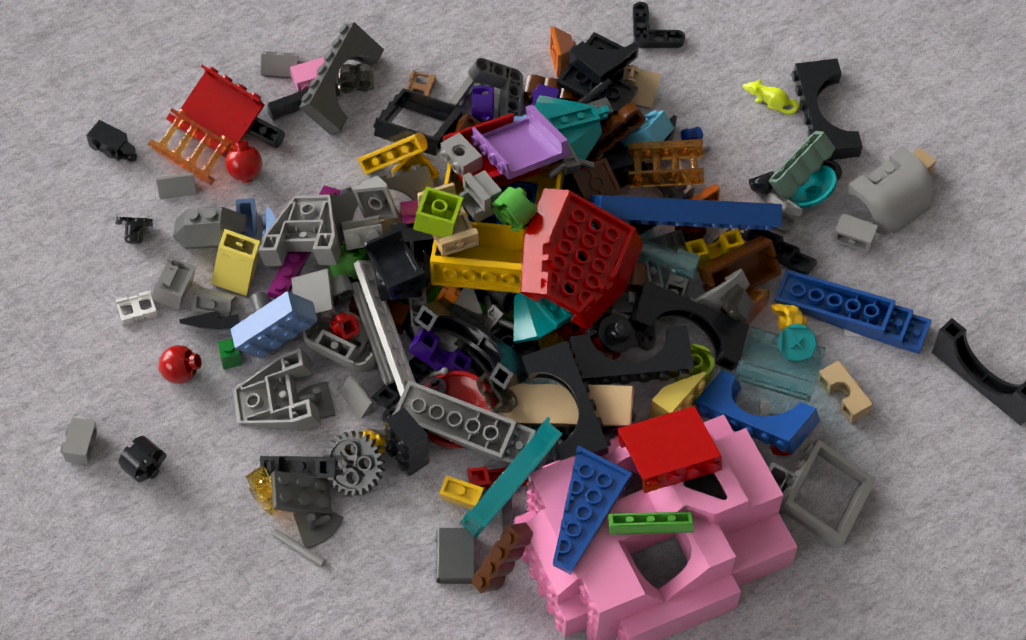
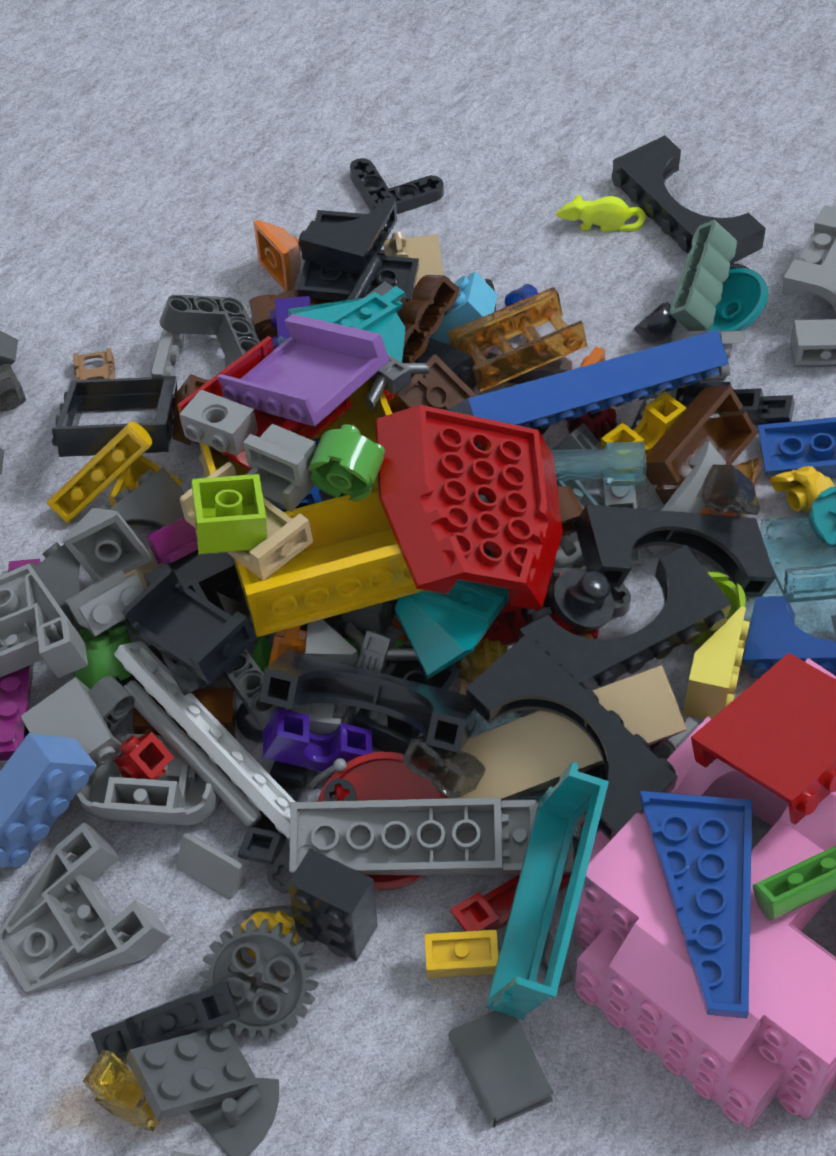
camera: 20 degrees left, 5 degrees down
(320, 396) = (148, 889): dark grey shield -> none
(483, 104) = (202, 358): dark purple piece -> none
(502, 558) = (594, 1036): reddish brown brick -> none

